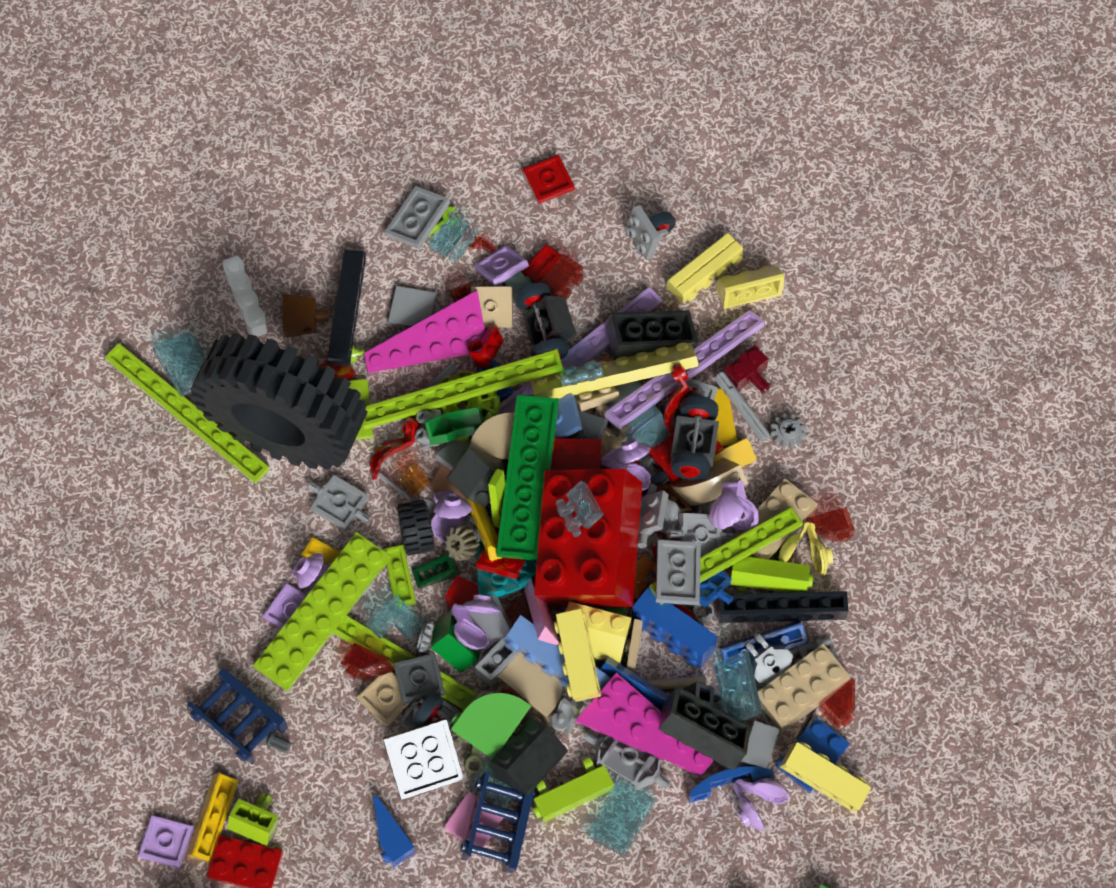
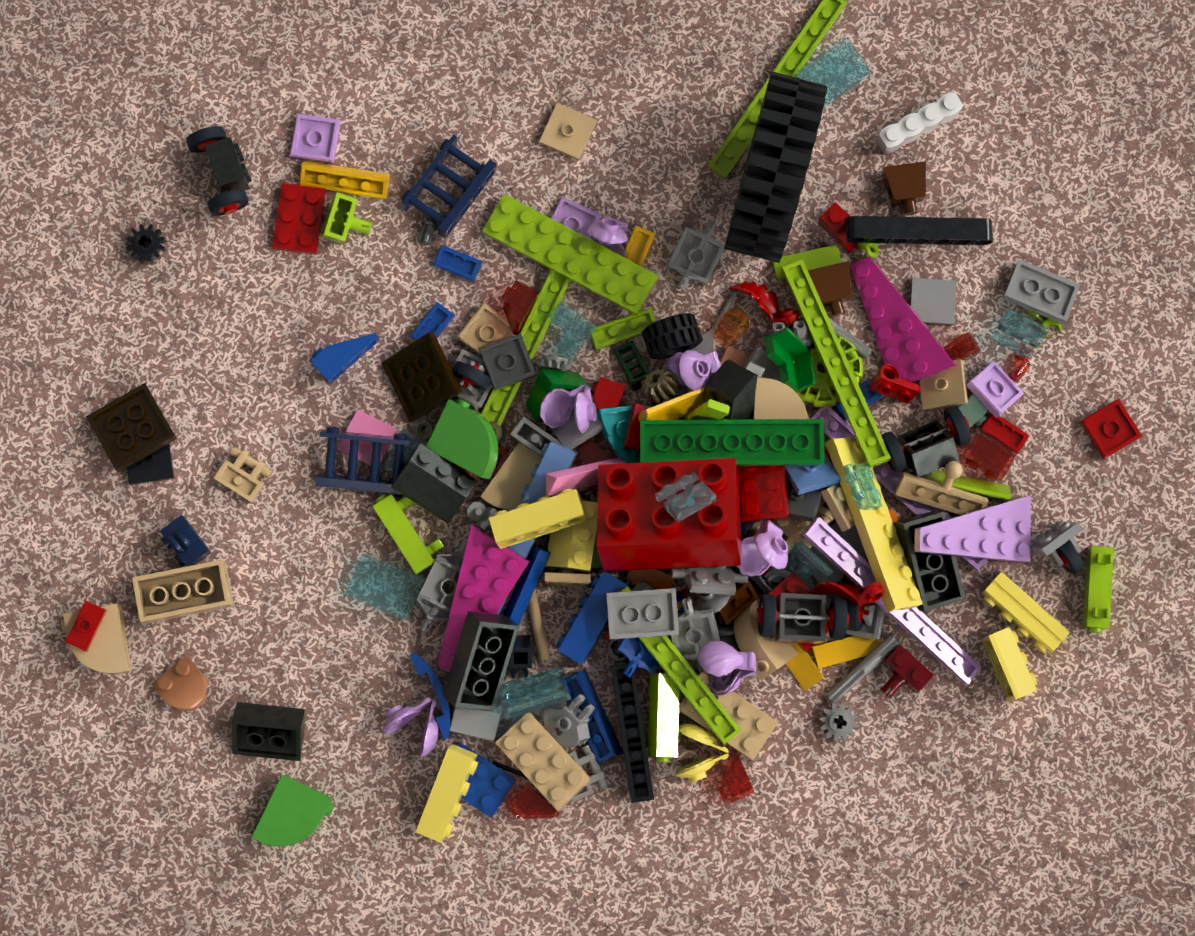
camera: 80 degrees right, 15 degrees up
(199, 604) = (568, 131): none -> tan plate
(313, 718) = (457, 263): none -> blue plate
(370, 748) = (435, 321): none -> blue plate
(386, 385) = (833, 286): none -> reddish brown torso
(586, 299) = (980, 487): none -> lime slope
(593, 317) = (941, 495): none -> tan plate
(632, 287) = (988, 533): none -> lavender wing
(690, 206) = (1098, 588): none -> lime brick

